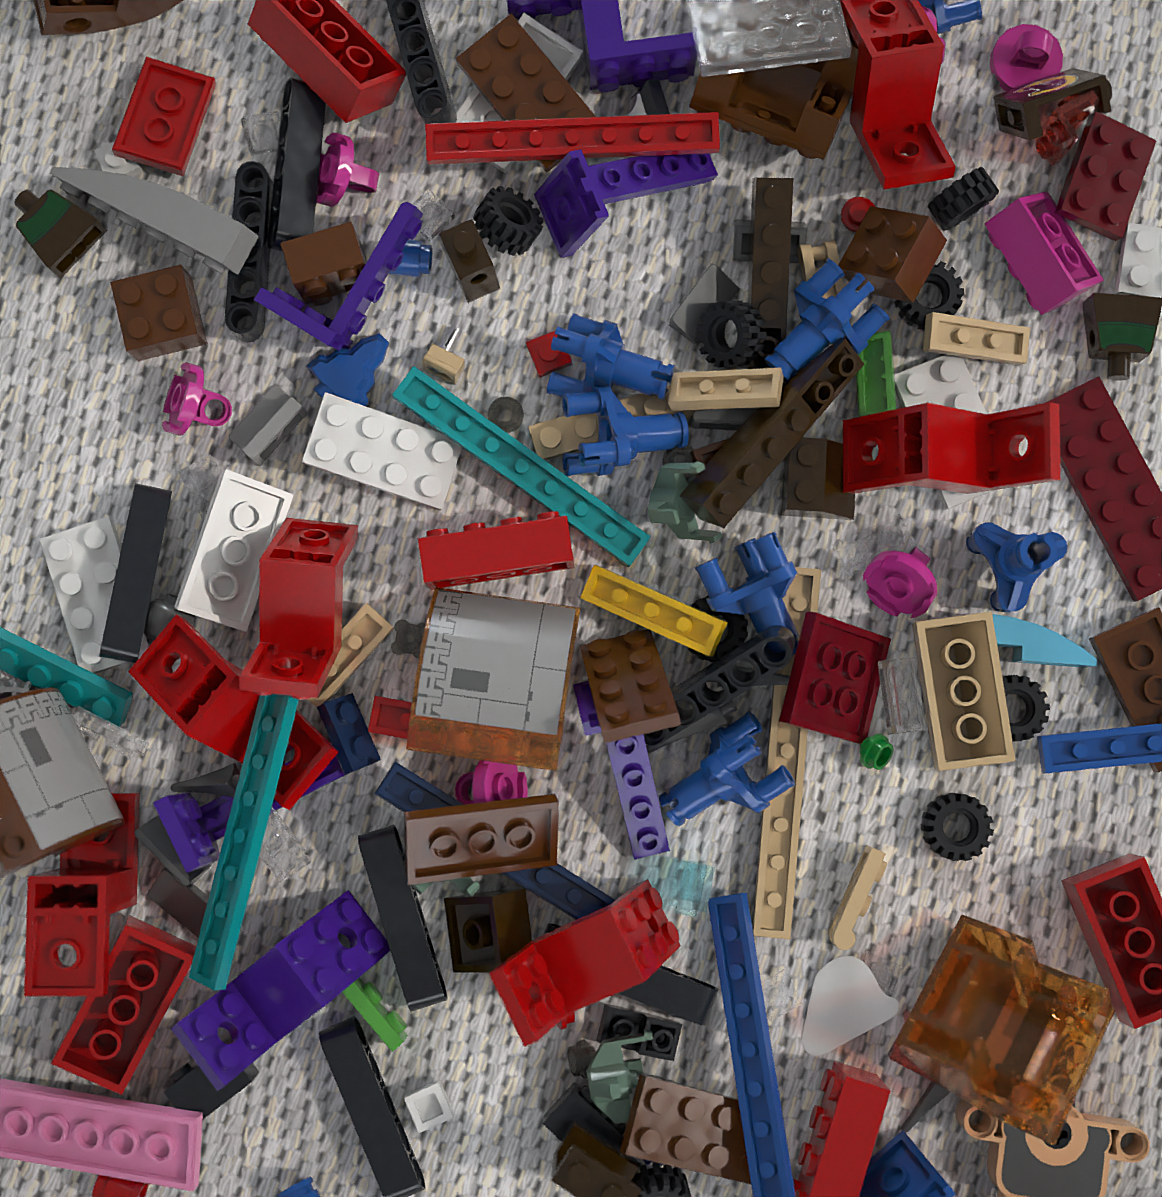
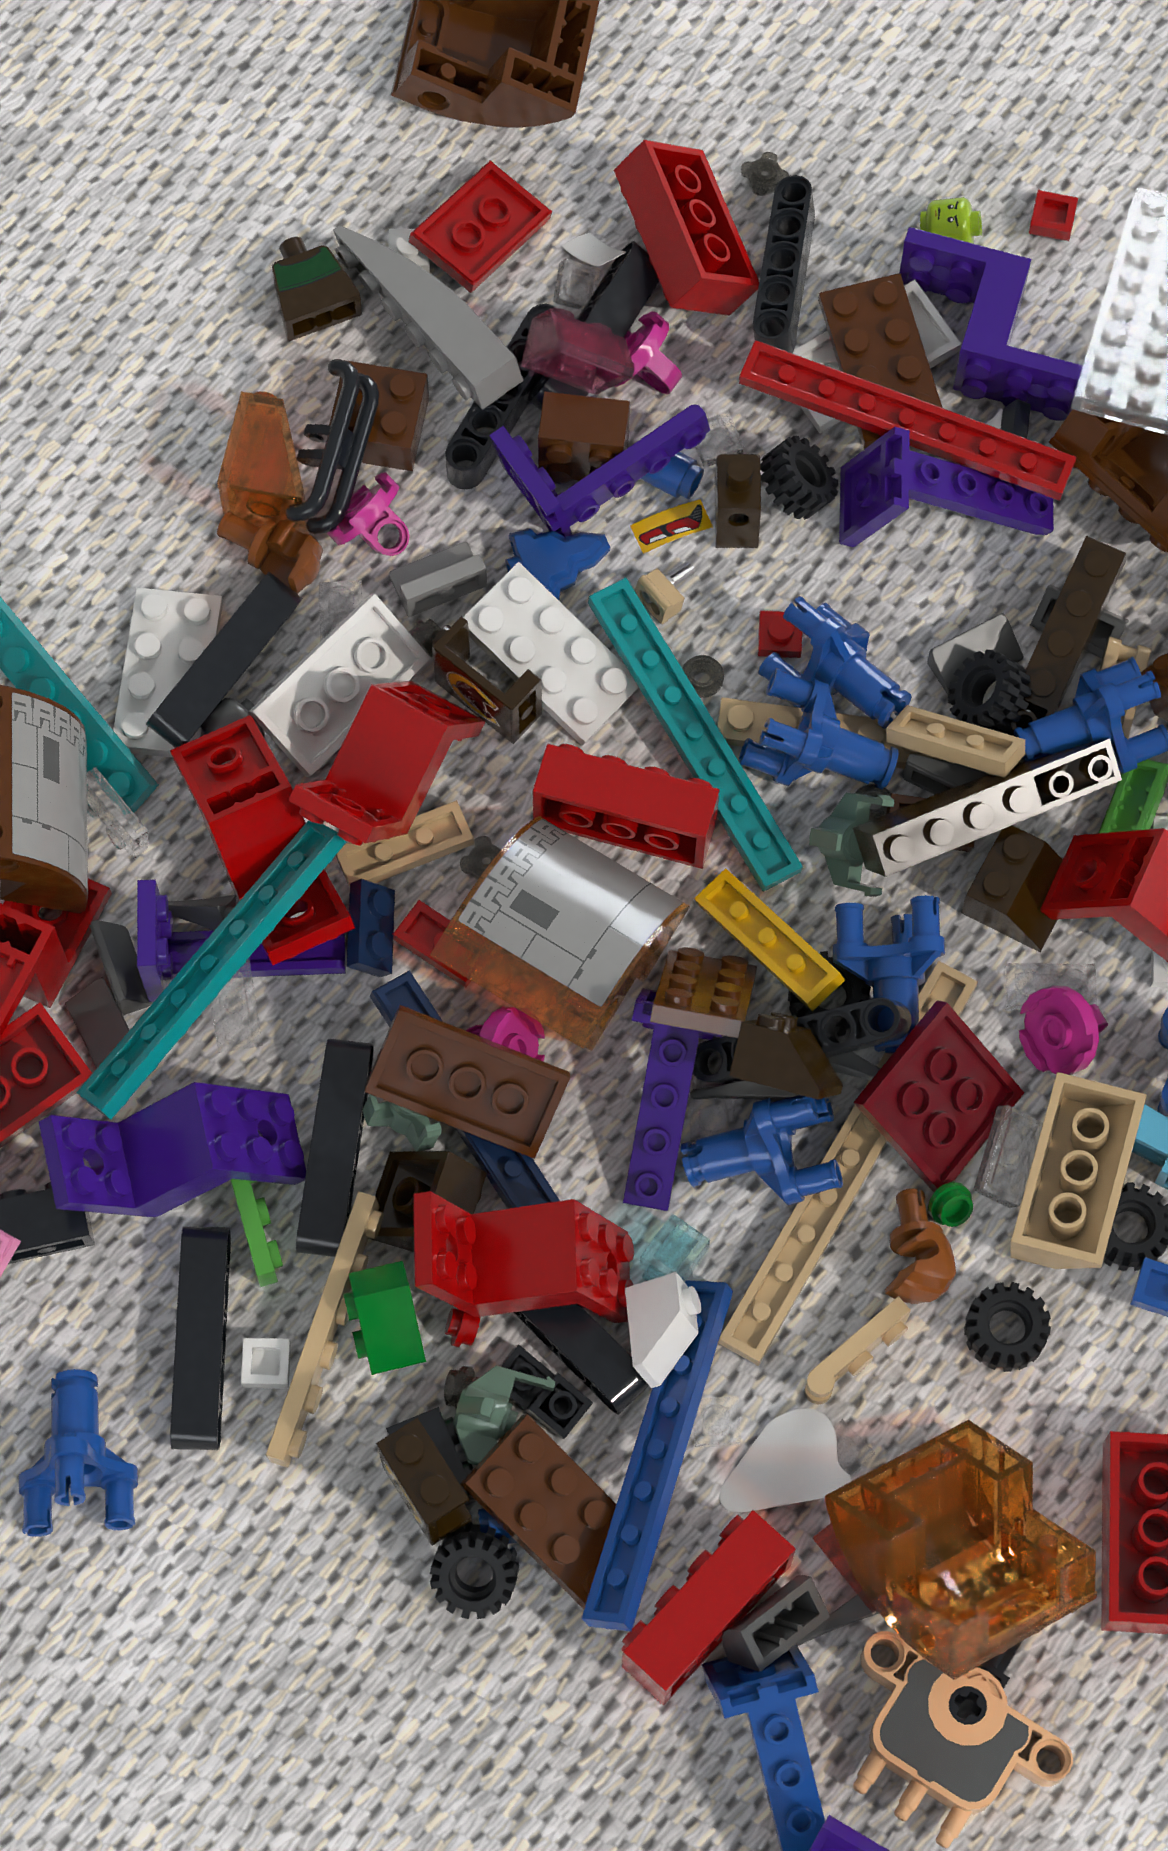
camera: 20 degrees right, 15 degrees down
(87, 400) = (260, 463): none -> clear orange slope
(132, 458) = (276, 549): none -> dark orange piece
(142, 362) = (342, 450): none -> black piece
(261, 98) = (591, 250): none -> white sticker
(282, 478) = (425, 633): none -> clear smoke plate
(290, 195) = (576, 352): none -> clear pink slope
(378, 513) = (505, 712): none -> dark brown panel
(426, 300) = (671, 525): none -> yellow sticker
(464, 1080) = (319, 1349): none -> tan plate
(496, 1042) = (386, 1318): none -> green brick
(708, 952) = (661, 1324): none -> white slope
(719, 721) = (783, 1057): none -> dark brown slope
(872, 795) = (934, 1259): none -> dark orange piece
(897, 1140) = (775, 1624): none -> dark grey brick

